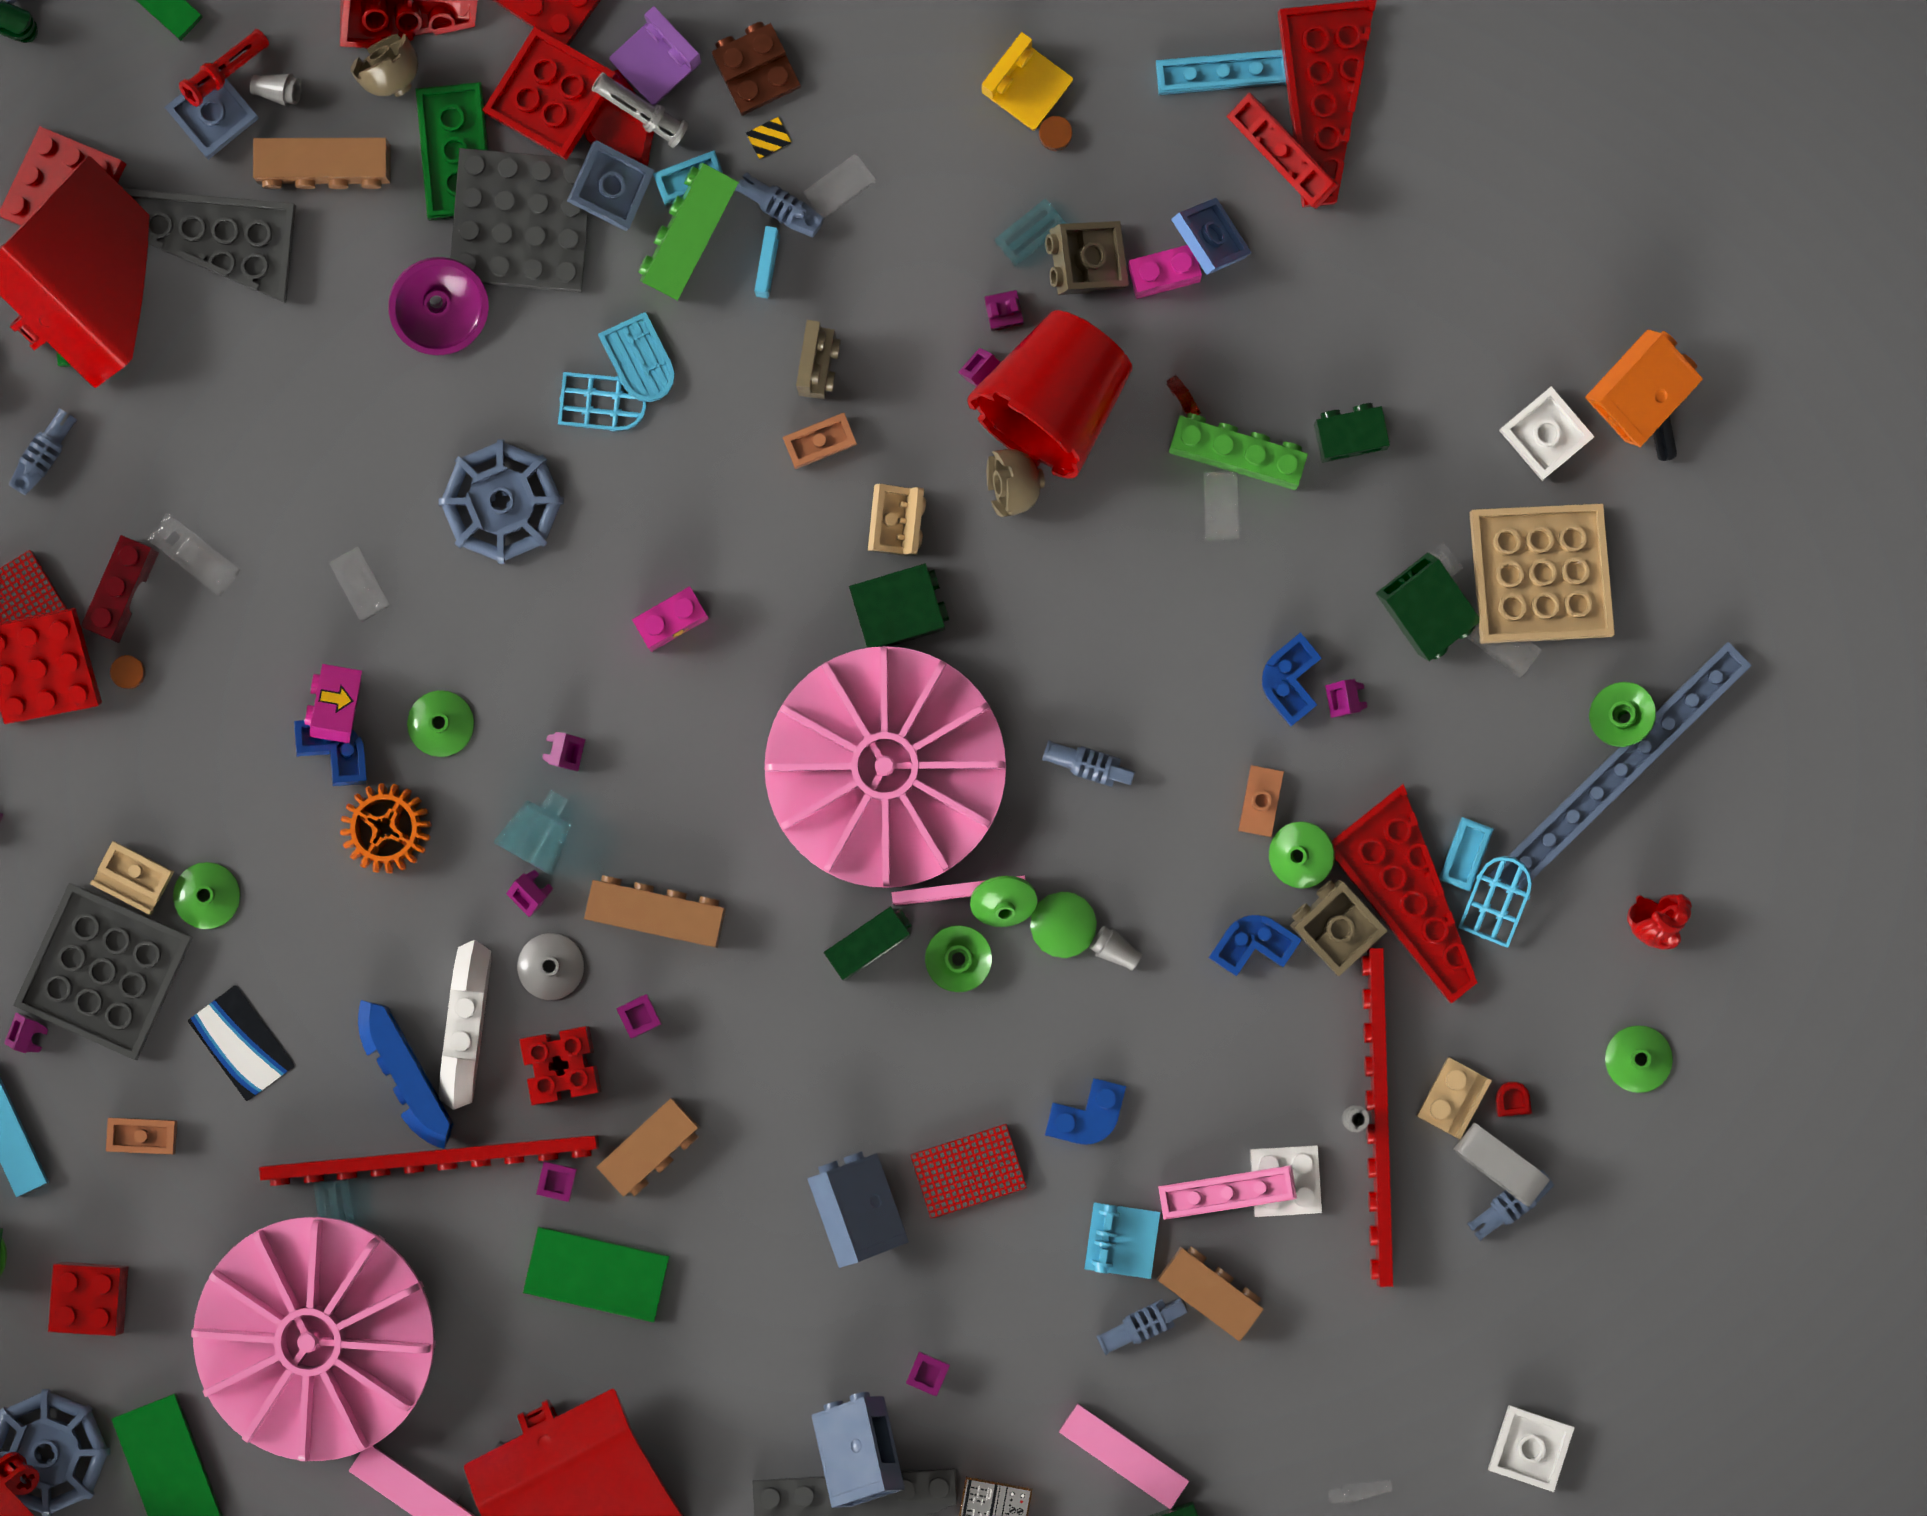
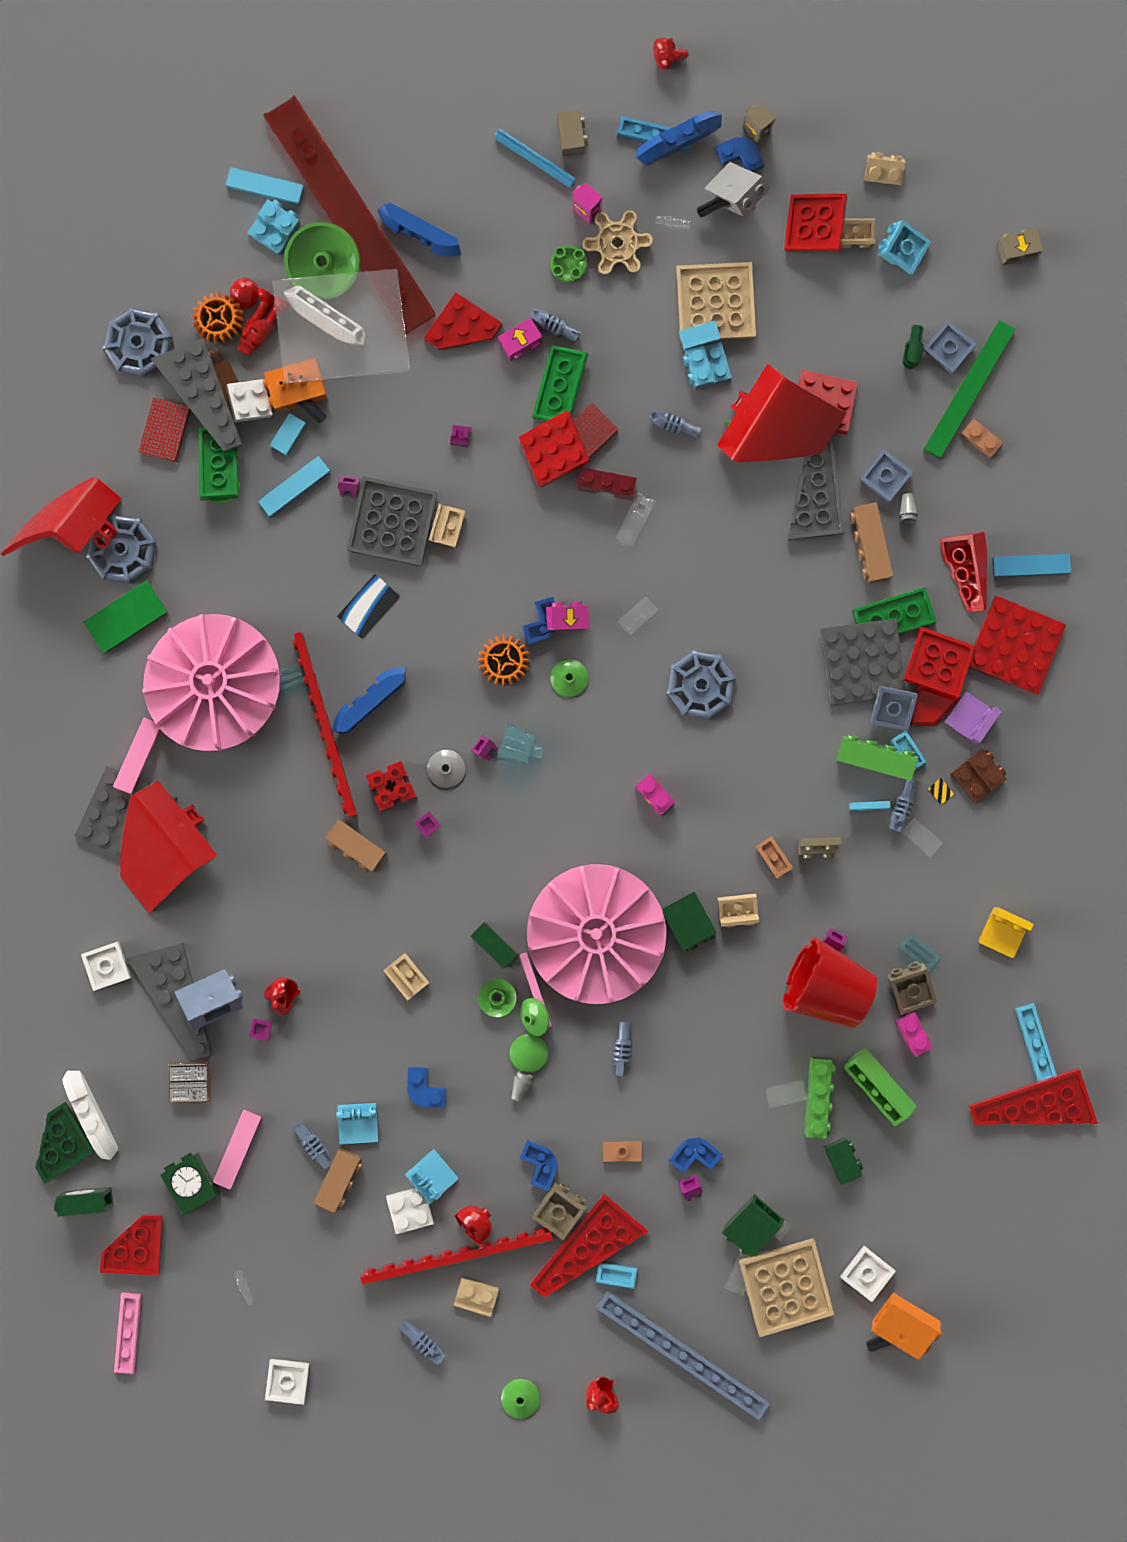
camera: 75 degrees right, 0 degrees up
(88, 1298) = (209, 553): red brick -> none
(127, 672) = (561, 498): dark orange tile -> none
(141, 1136) = (305, 562): nougat plate -> none
(211, 74) = (908, 470): red pin -> none
(223, 895) = (448, 578): bright green dish -> none
(388, 67) = (933, 569): dark tan cylinder -> none
(440, 326) = (792, 628): magenta dish -> none
(464, 1024) = (403, 728): white brick -> none
(556, 1181) = (326, 798): magenta tile -> none
(565, 751) = (568, 752): magenta tile -> none
(590, 409) = (763, 722): medium azure window -> none
(596, 1274) = (279, 831): green tile -> none
(639, 358) = (798, 745): medium azure window -> none
(653, 117) = (938, 724): light grey pin -> none
(655, 913) = (487, 821): medium nougat brick -> none
(857, 1208) = (344, 970): sand blue piece -> none
(874, 1327) = (280, 994): none -> red hair
(890, 1106) = (406, 976): none -> tan plate
(968, 1171) = (379, 1028): red tile -> none
(1003, 310) = (871, 946): magenta tile -> none
(1014, 480) = (774, 973): dark tan cylinder -> none
(1055, 133) = (979, 954): dark orange tile -> none
(1183, 395) = (848, 1054): clear red tile -> none
(1211, 236) = (939, 1056): medium blue tile -> none
(1227, 1192) = (396, 1178): bright pink tile -> none
(1237, 1132) = (431, 1176): none -> medium azure hinge
(1240, 346) = (880, 1086): none -> bright green brick
(1282, 150) = (998, 1088): red plate -> none
(1316, 850) = (604, 1186): bright green dish -> none
(1329, 1073) = (475, 1222): none -> red cylinder
(1347, 1118) = (451, 1248): light grey pin -> none
(1486, 907) = (603, 1295): medium azure window -> none
(1501, 1164) = (443, 1333): light grey beam -> none
(1512, 1099) = (482, 1330): red tile -> none
(1612, 704) = (722, 1344): bright green dish -> none

